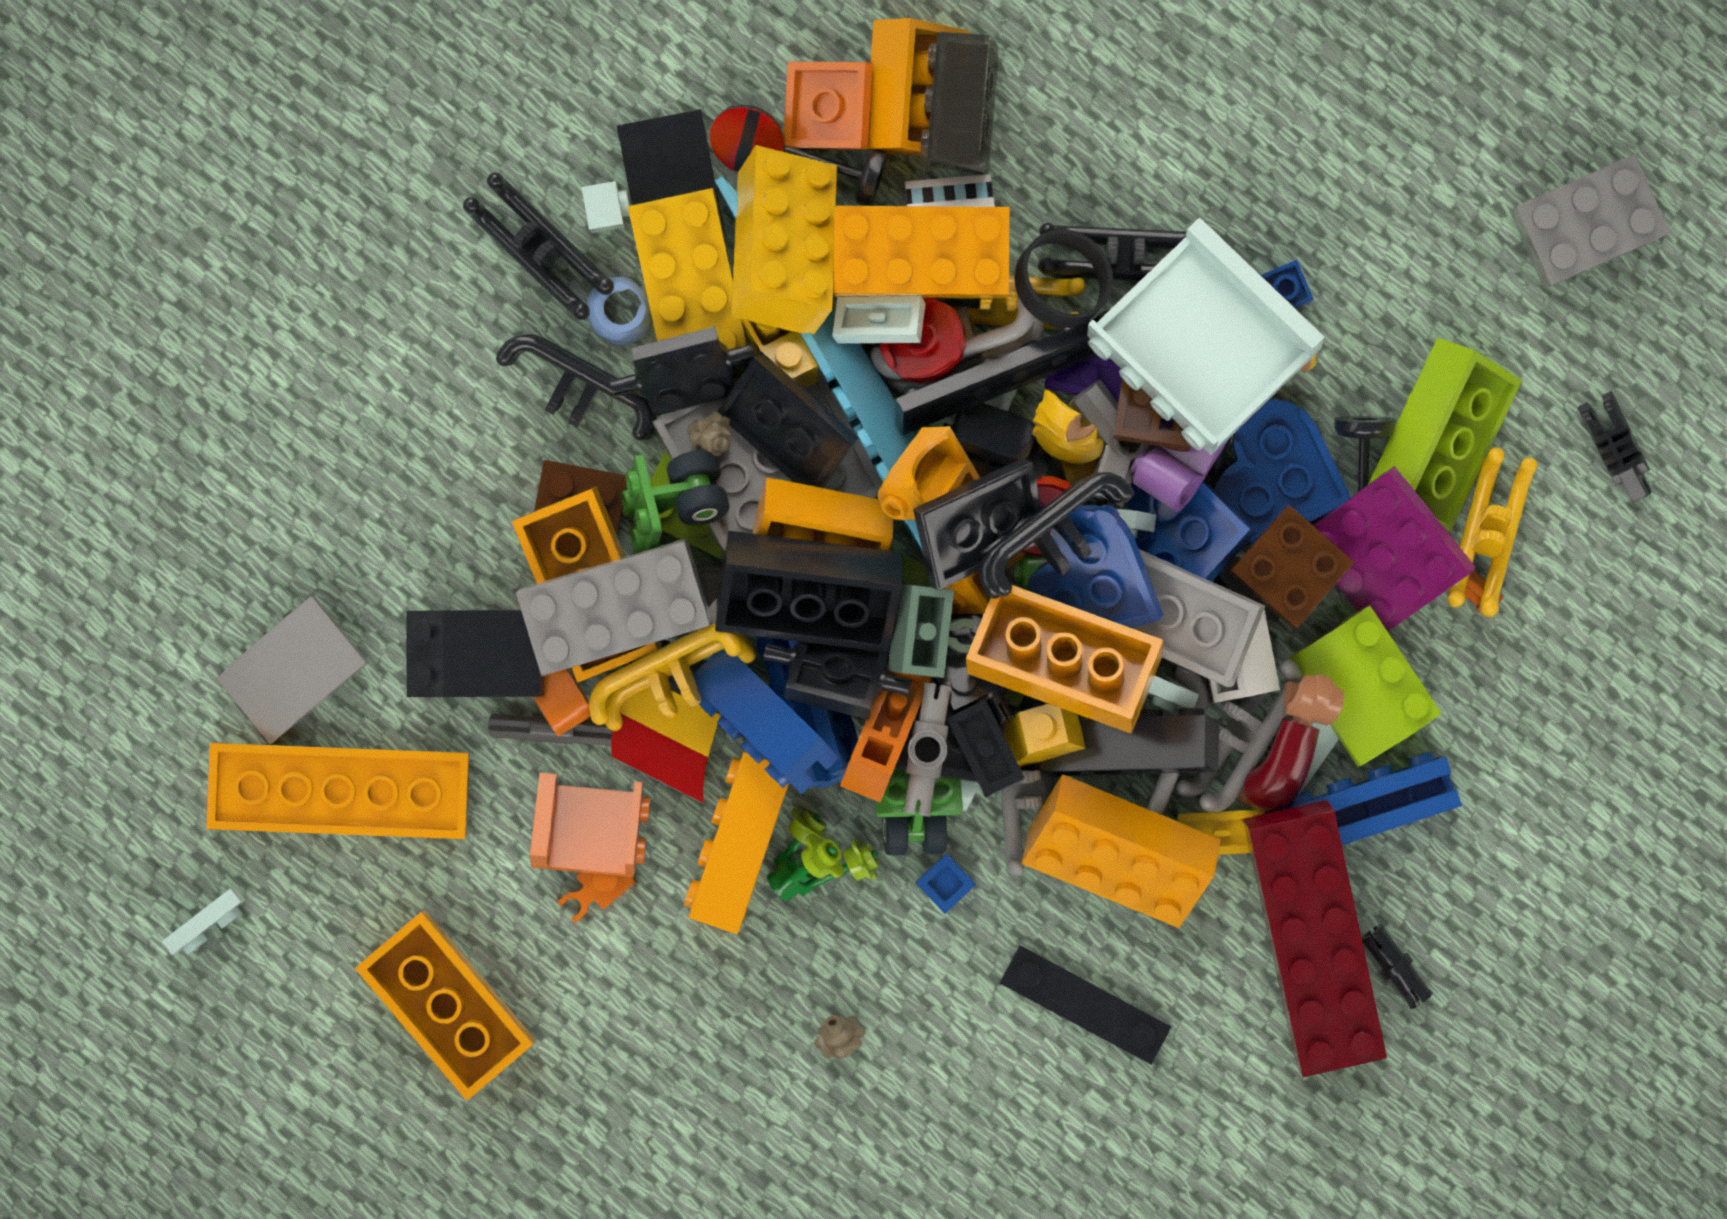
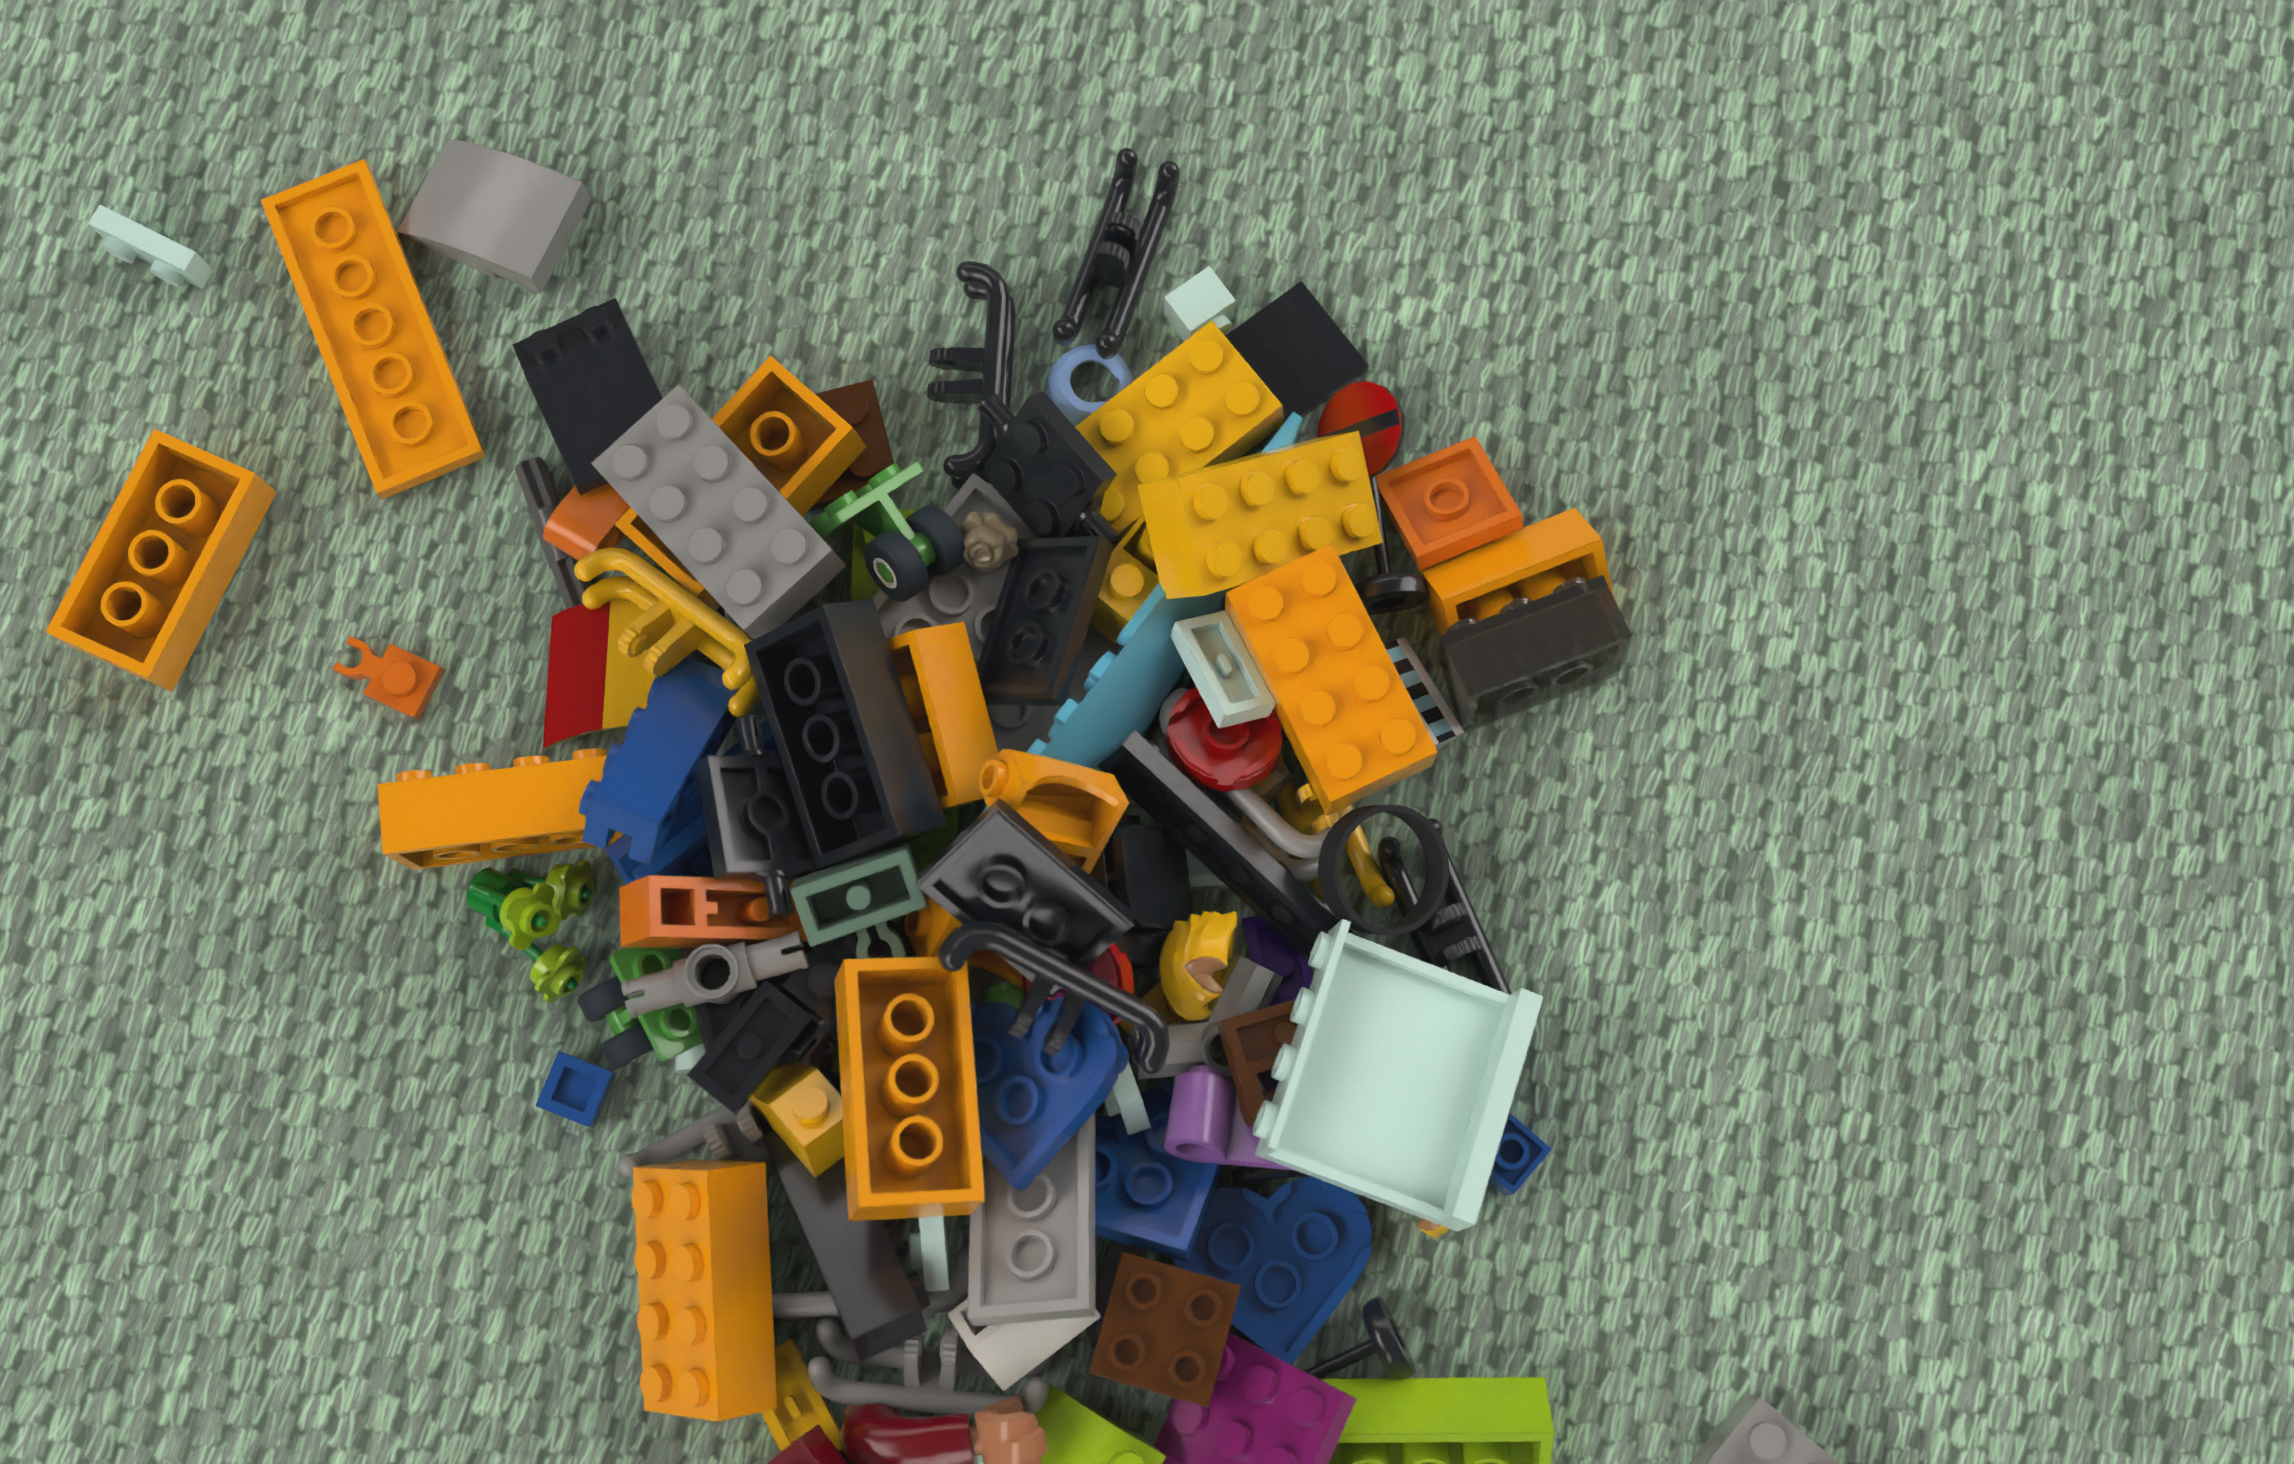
camera: 65 degrees right, 10 degrees down
(588, 828) = (451, 625): orange panel -> none
(839, 1036) = (326, 1050): dark tan plant -> none
(1085, 1004) = (501, 1340): black plate -> none

